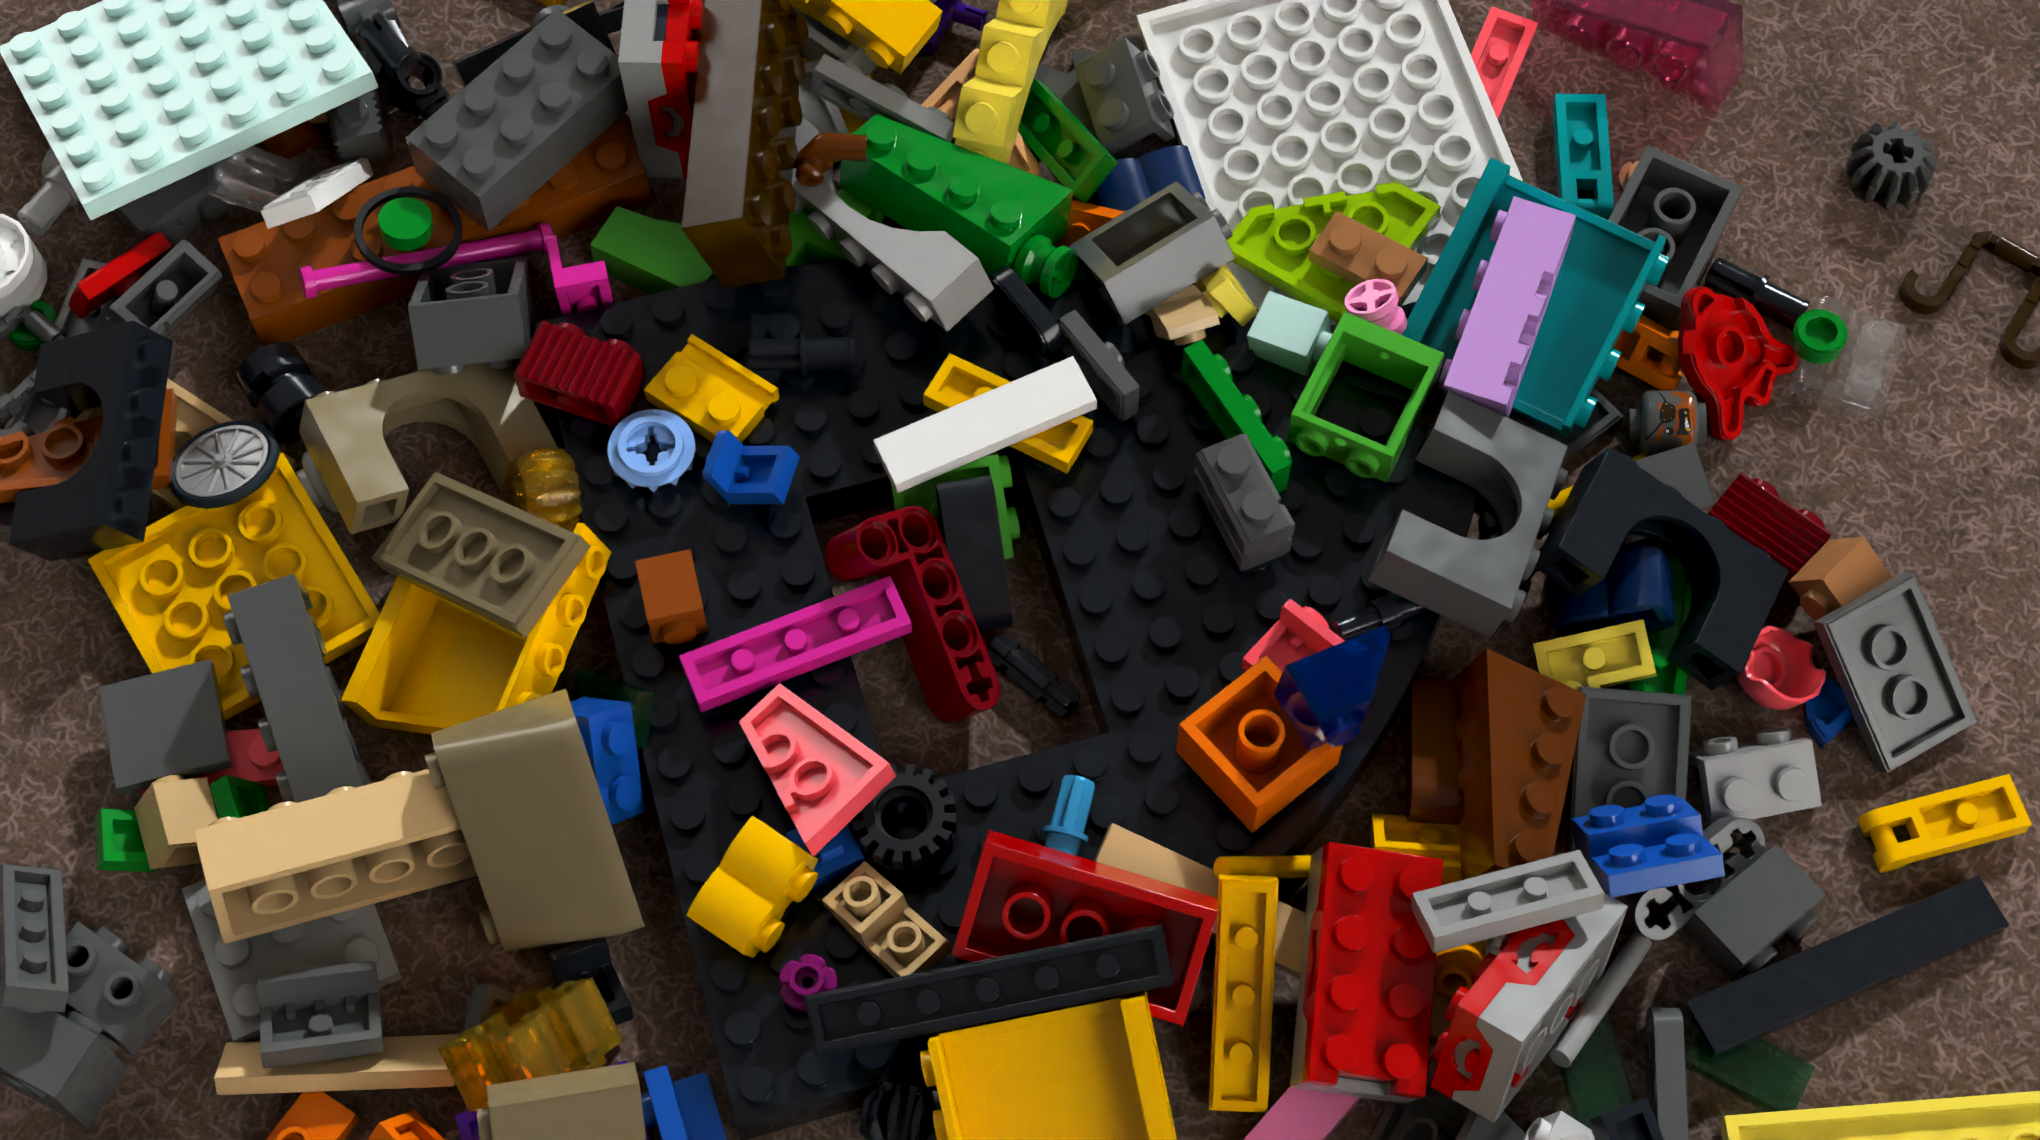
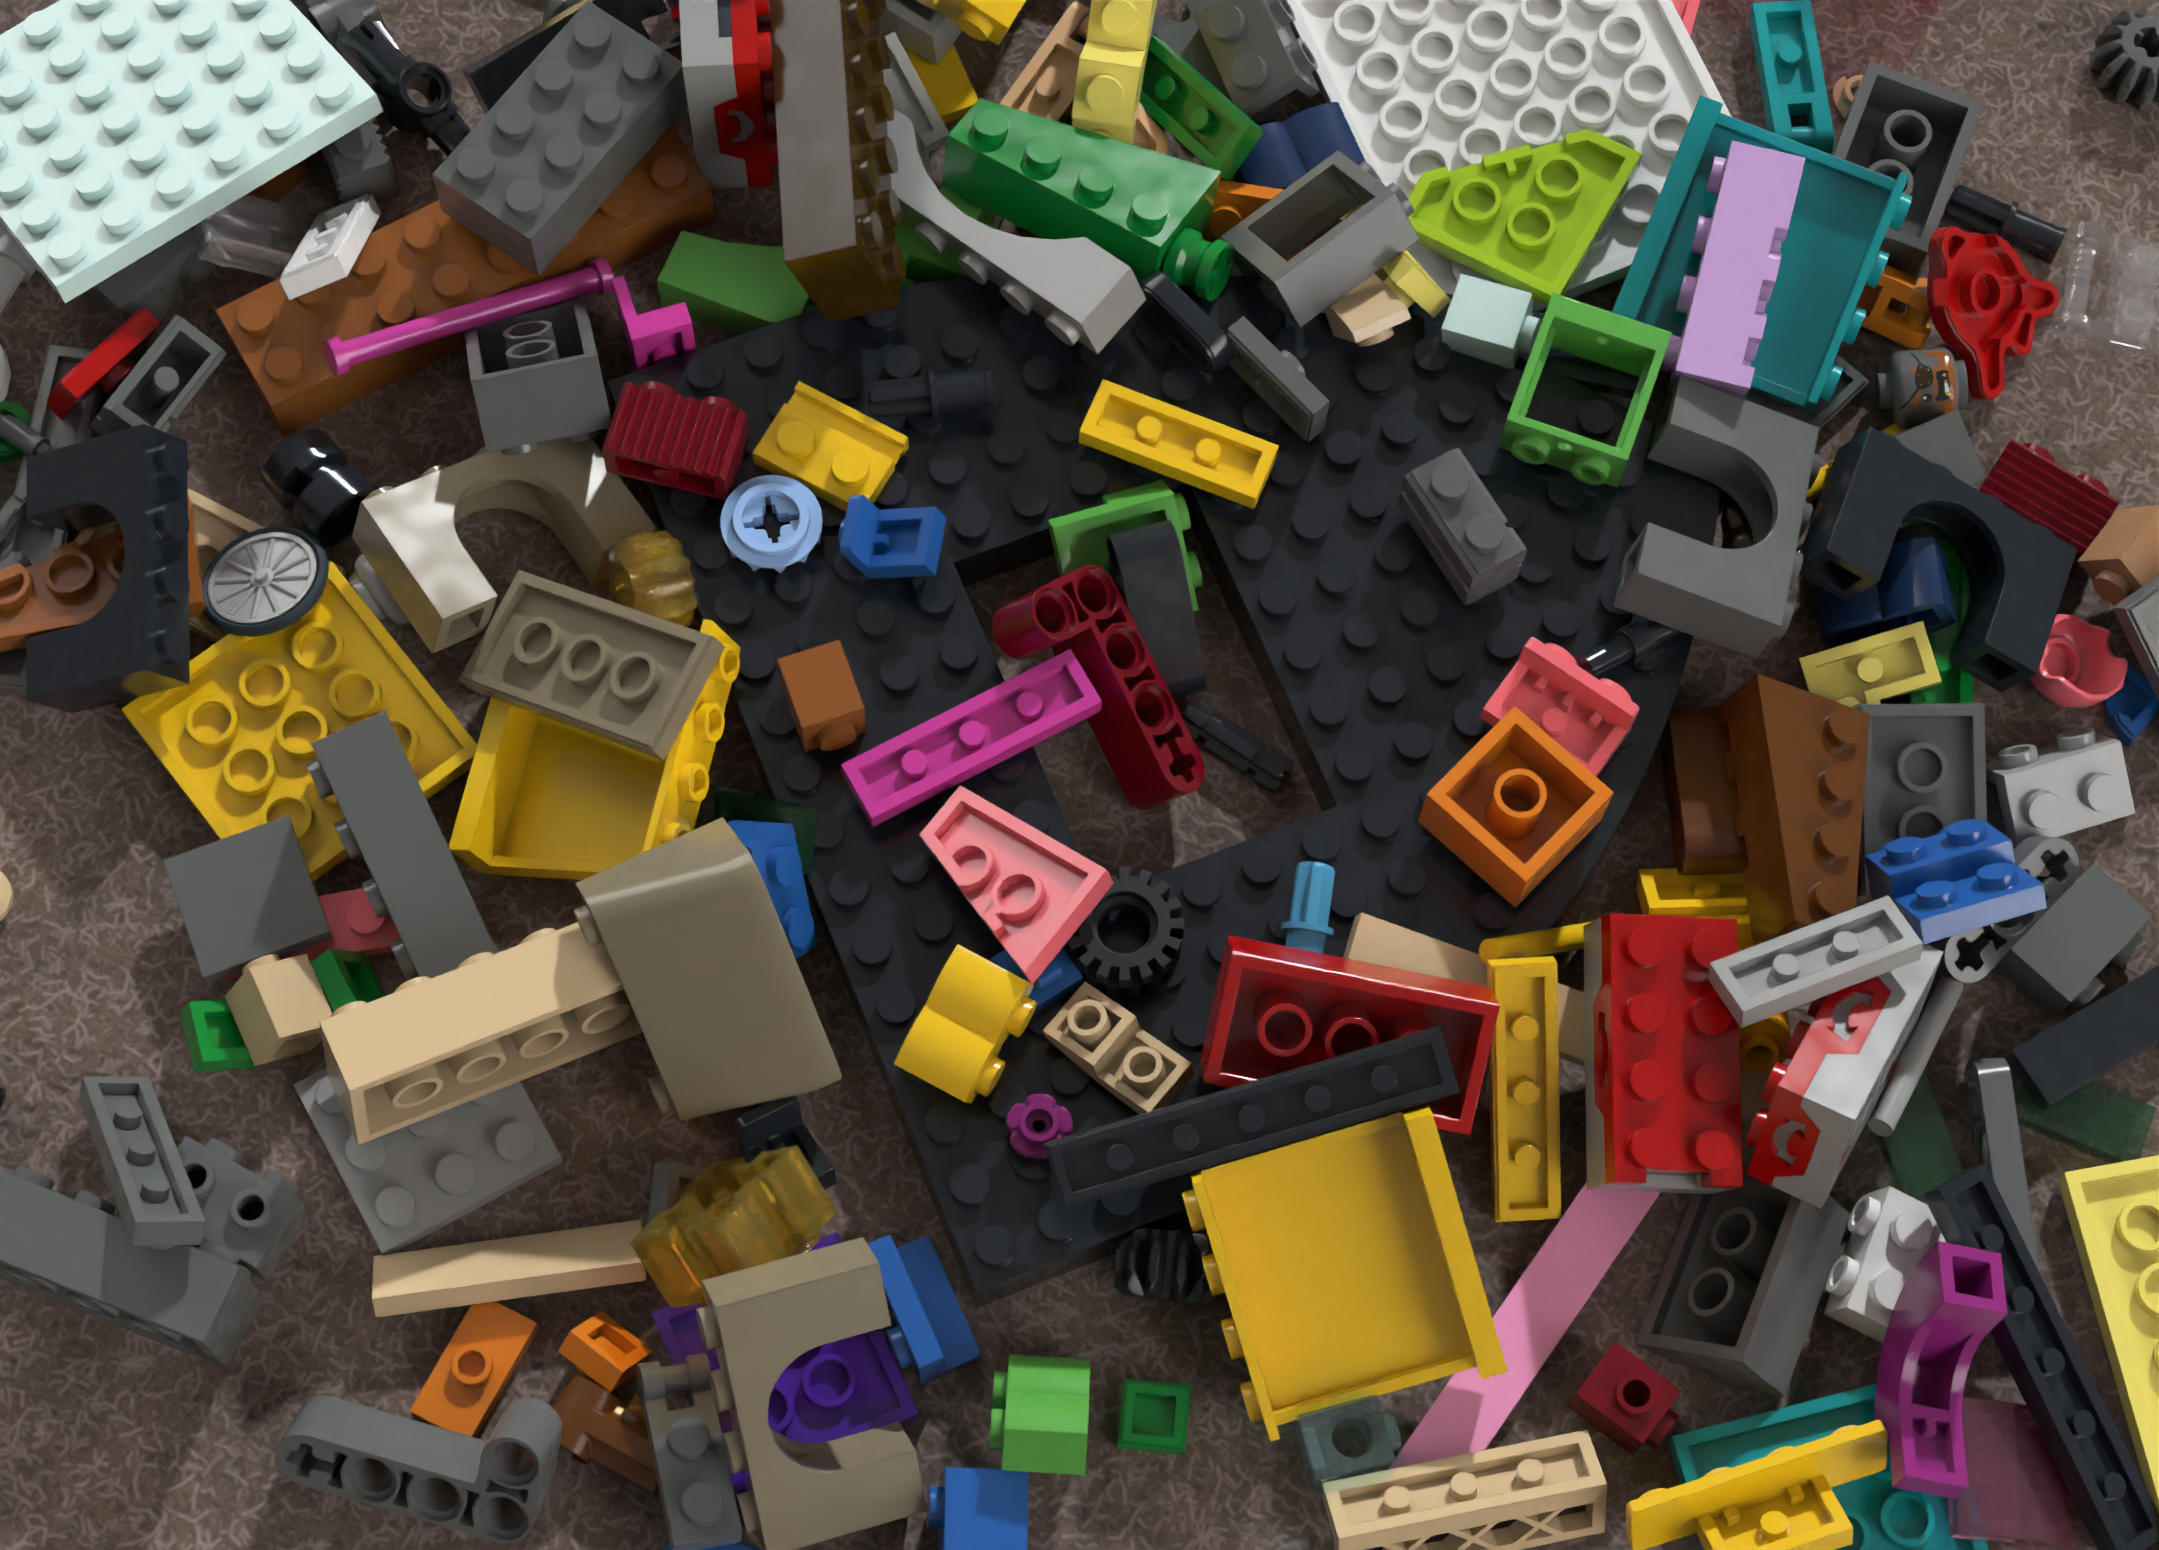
camera: 10 degrees left, 5 degrees up
(319, 1014) = (483, 1214): dark grey bracket -> none
(405, 224) = (443, 276): green tile -> none
(408, 269) = (444, 235): black piece -> none
(824, 151) = (928, 150): reddish brown arm -> none
(851, 90) = (940, 68): light grey plate -> none
(985, 424) = (1156, 461): white tile -> none
(1231, 412) = (1432, 419): green plate -> none
(1333, 689) = (1598, 740): clear blue slope -> none
(1365, 254) = (1566, 224): medium nougat plate -> none
(1377, 303) = (1585, 278): bright pink wheel -> none
(1819, 336) = (2081, 270): green tile -> none

